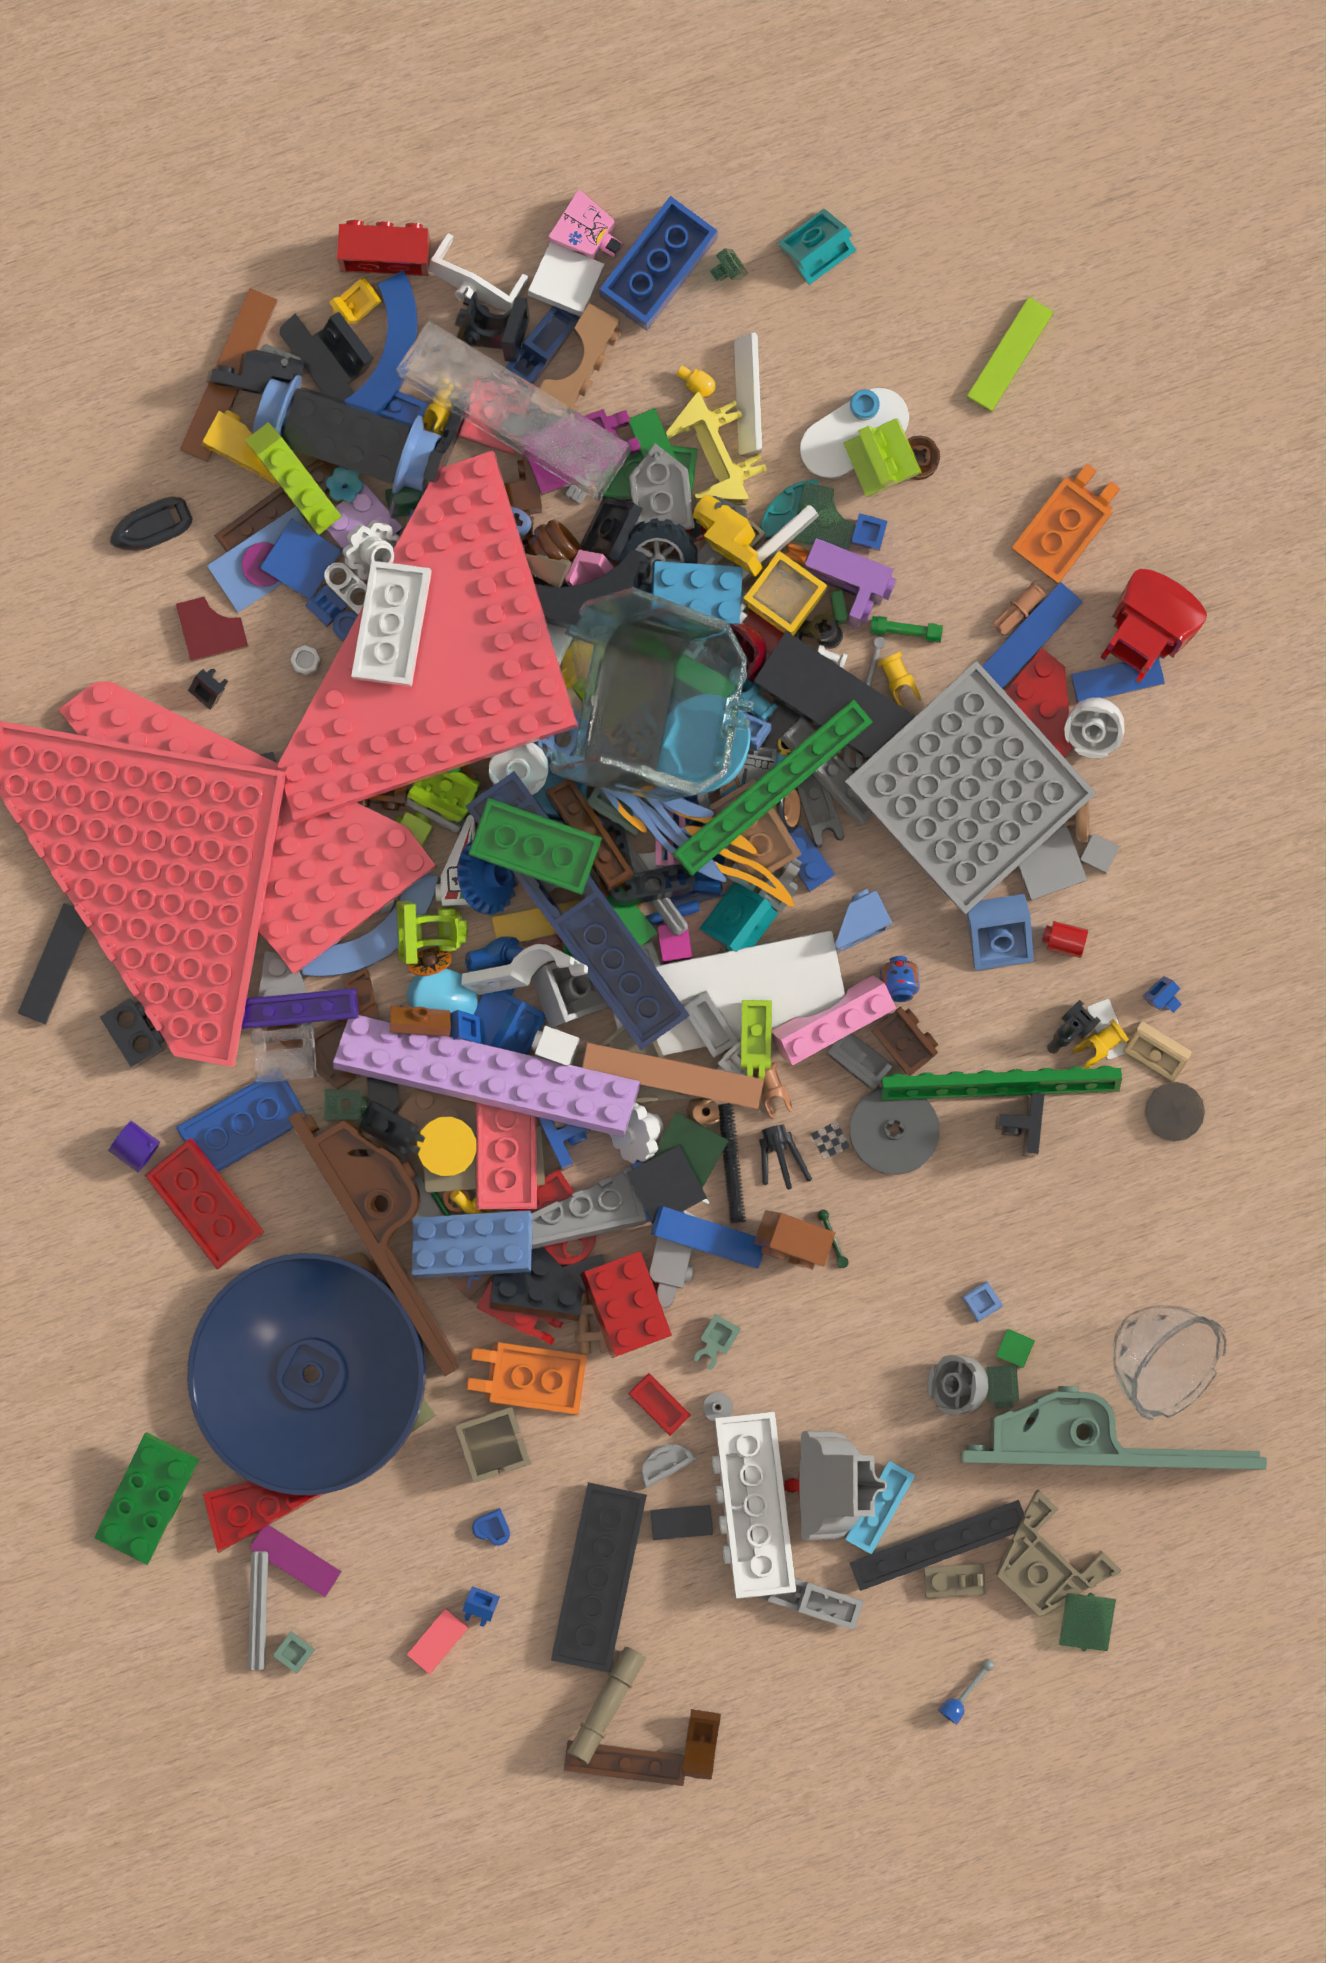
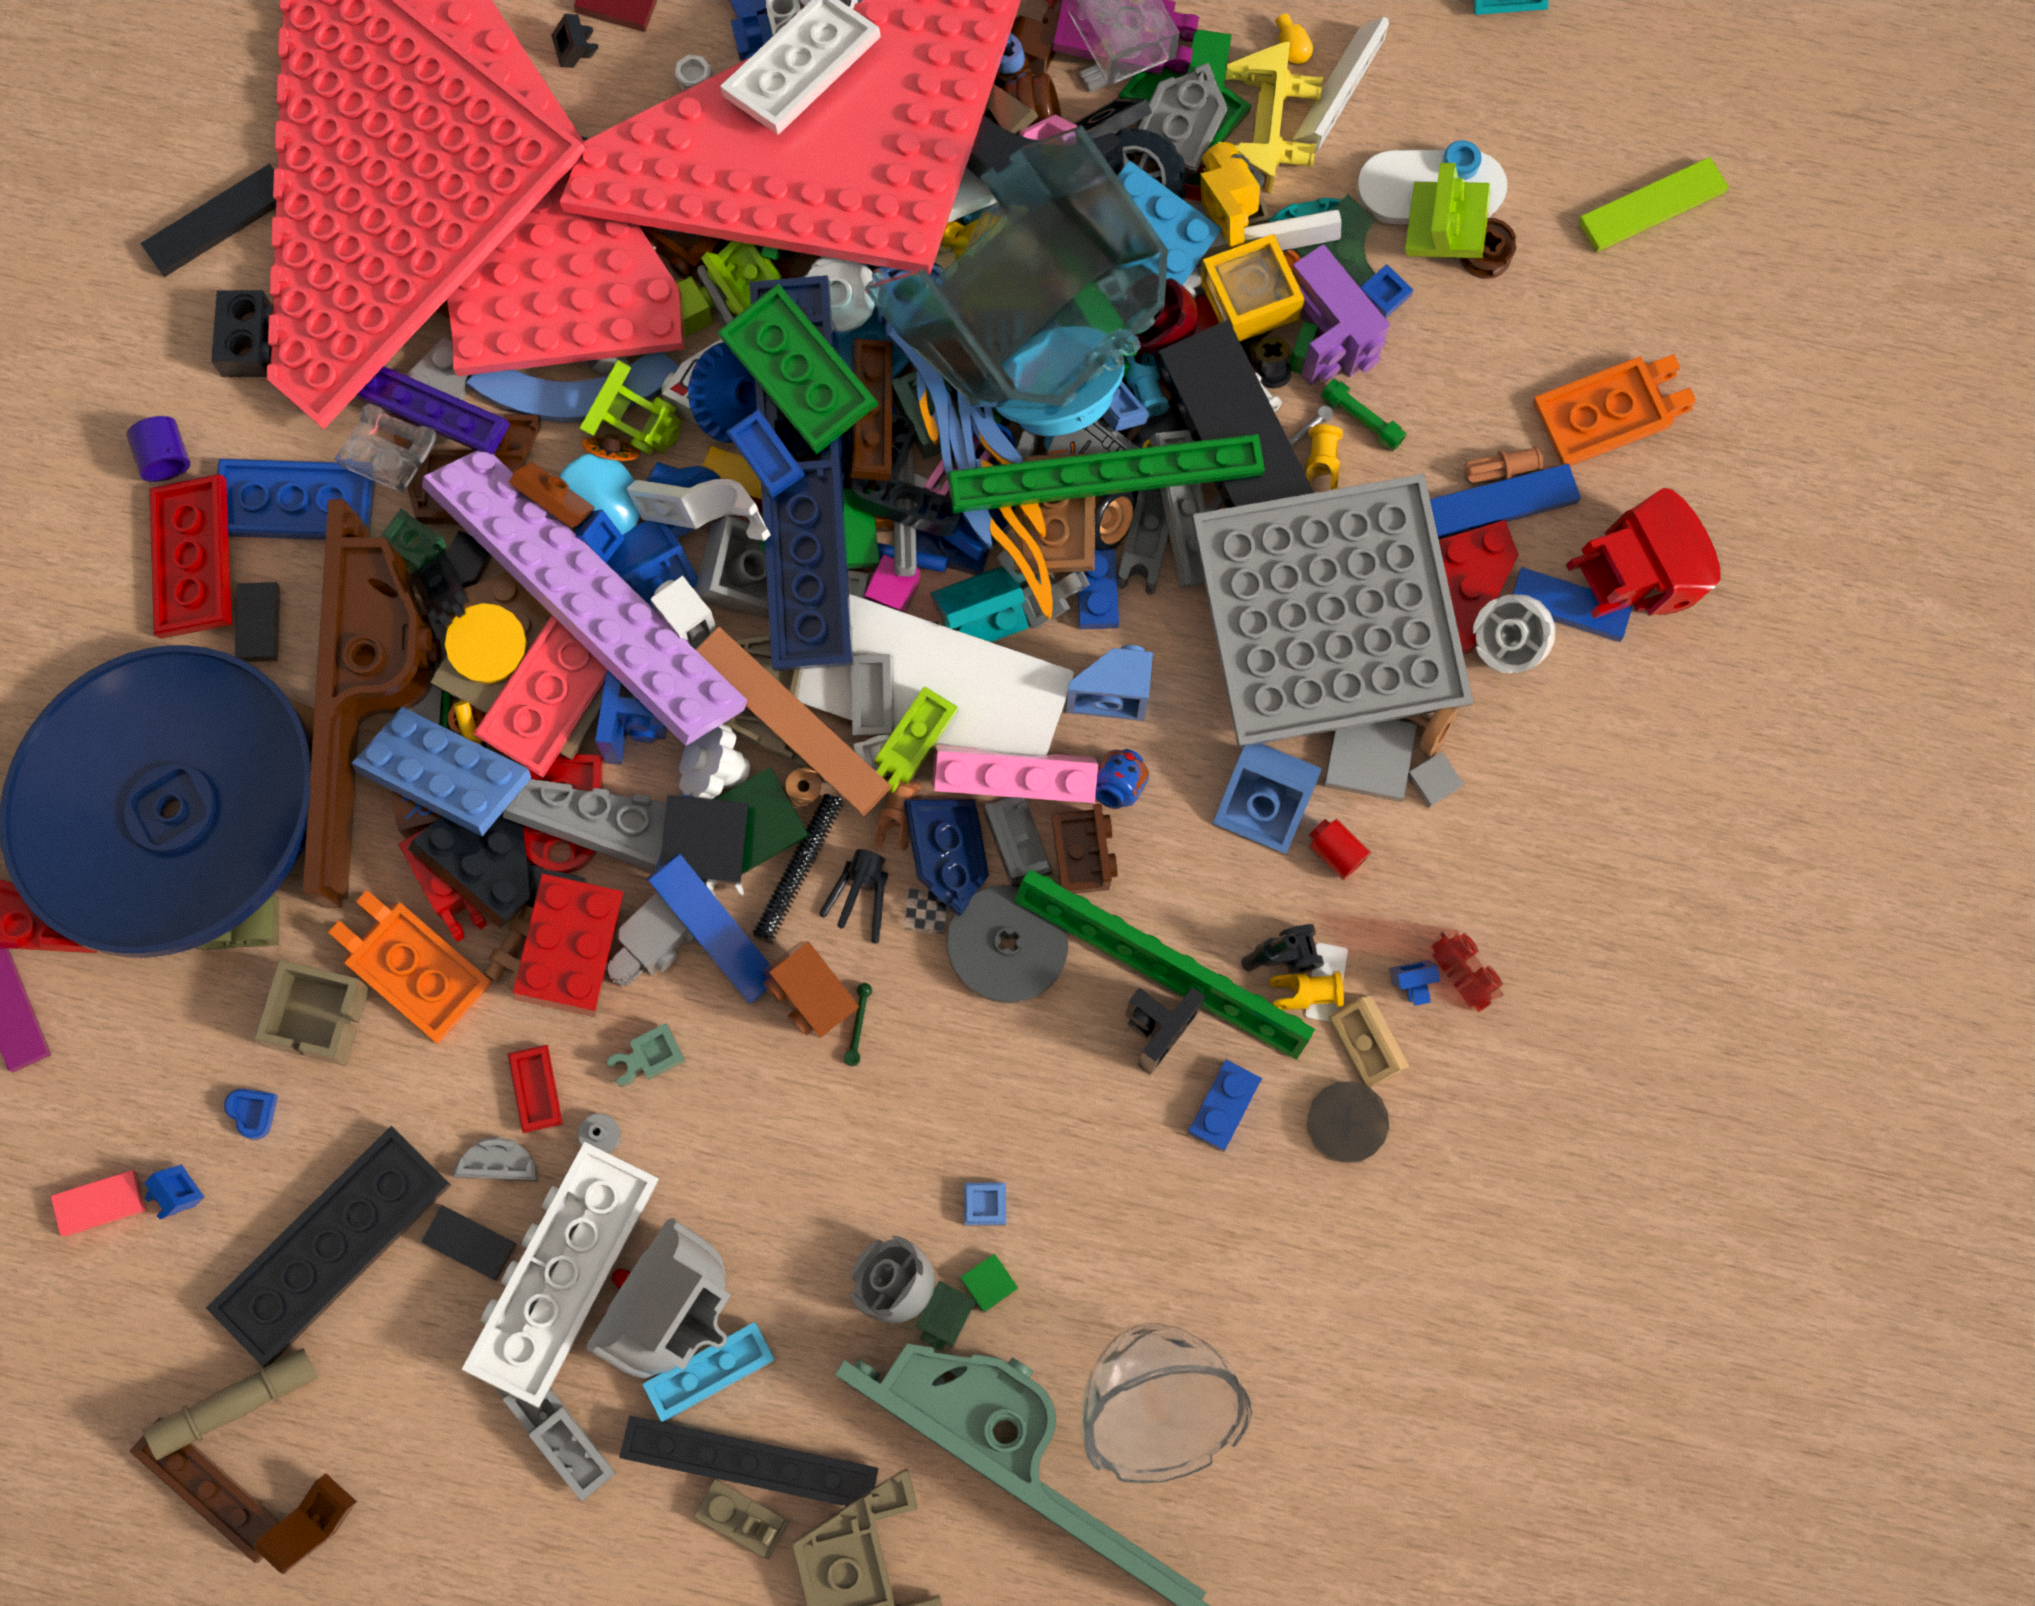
camera: 30 degrees right, 10 degrees down
(276, 1219) = (257, 621): none -> black tile
(549, 914) = (765, 453): none -> blue tile
(820, 1094) = (947, 848): none -> dark blue tile
(1092, 1148) = (1224, 1105): none -> blue plate
(1206, 970) = (1461, 948): none -> clear red hinge

